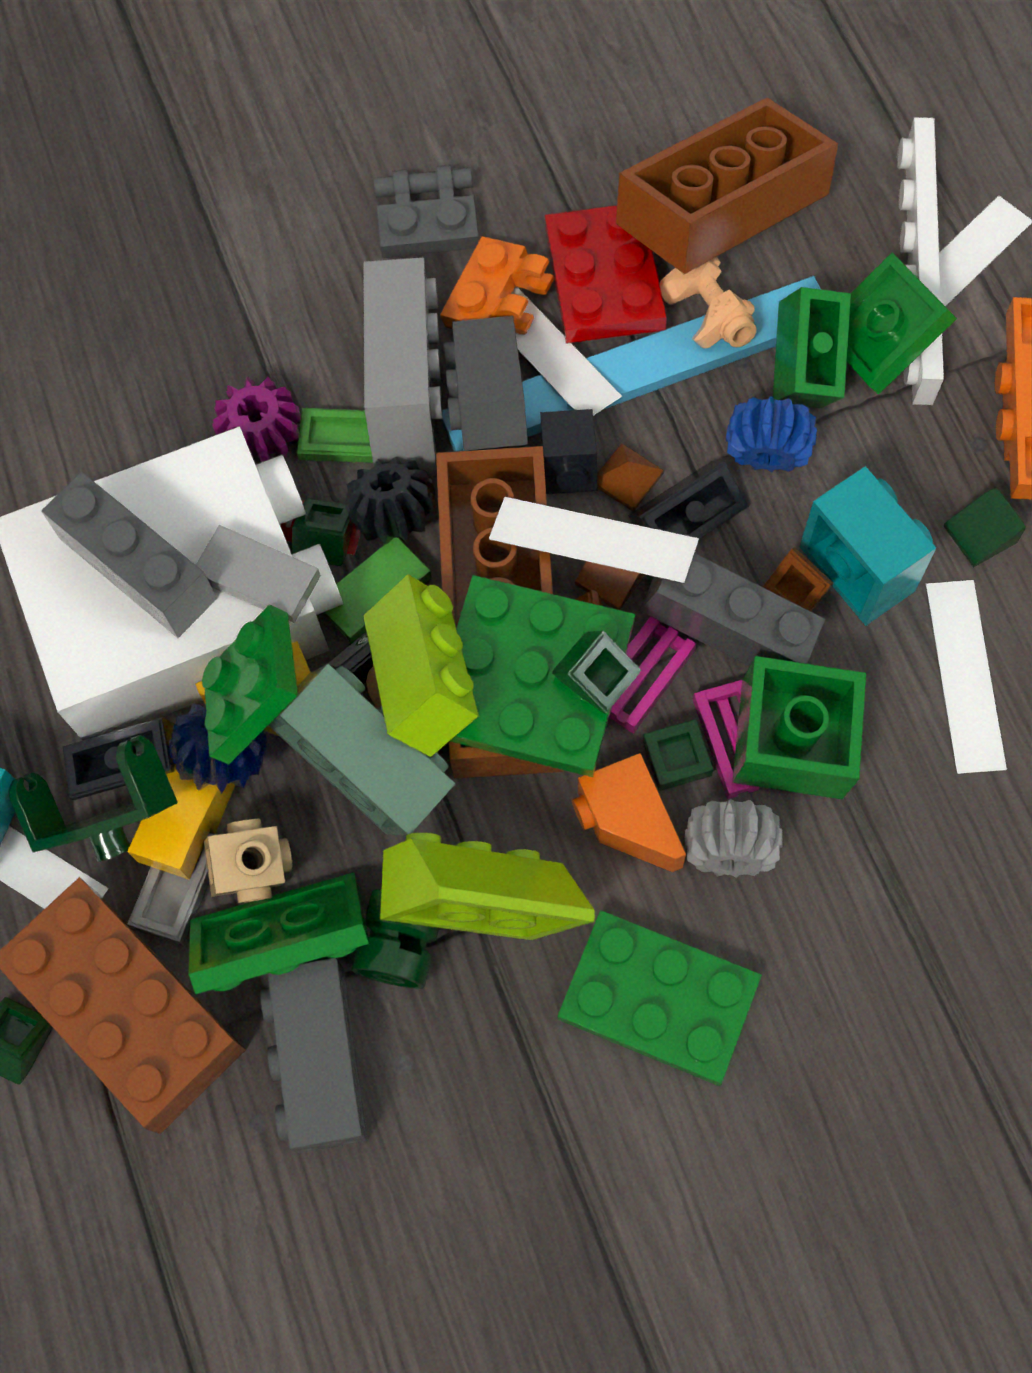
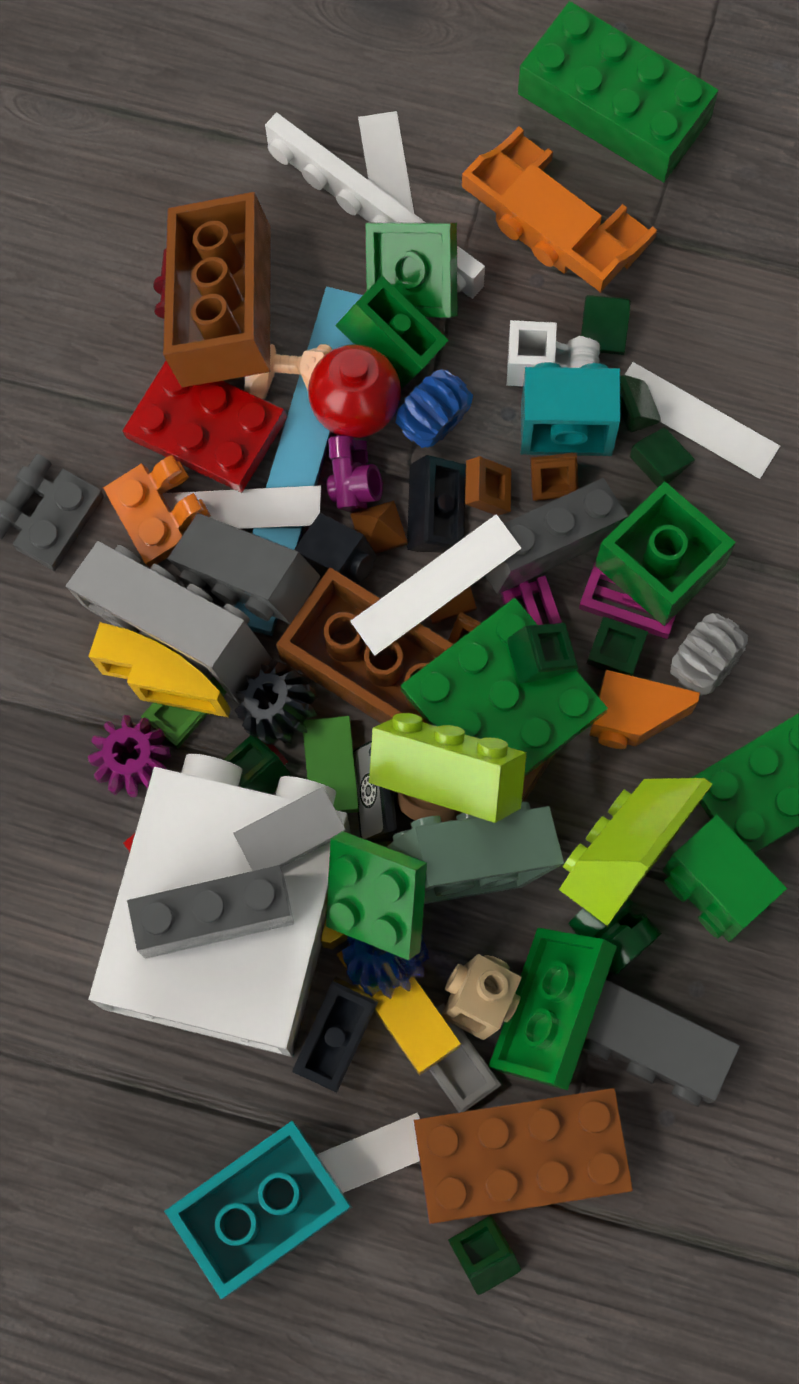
camera: 55 degrees left, 5 degrees up
(145, 783) = (385, 1078): dark green piece -> none
(340, 383) = (154, 671): none -> yellow slope
(513, 1003) = (721, 879): none -> green brick
(655, 417) = (352, 480): none -> magenta plate
(727, 354) = (354, 391): none -> red brick
(740, 534) = (488, 486): none -> dark orange plate
(900, 667) = (661, 456): none -> dark green slope
(912, 478) = (536, 343): none -> white brick
(933, 606) = (637, 404): none -> dark green slope

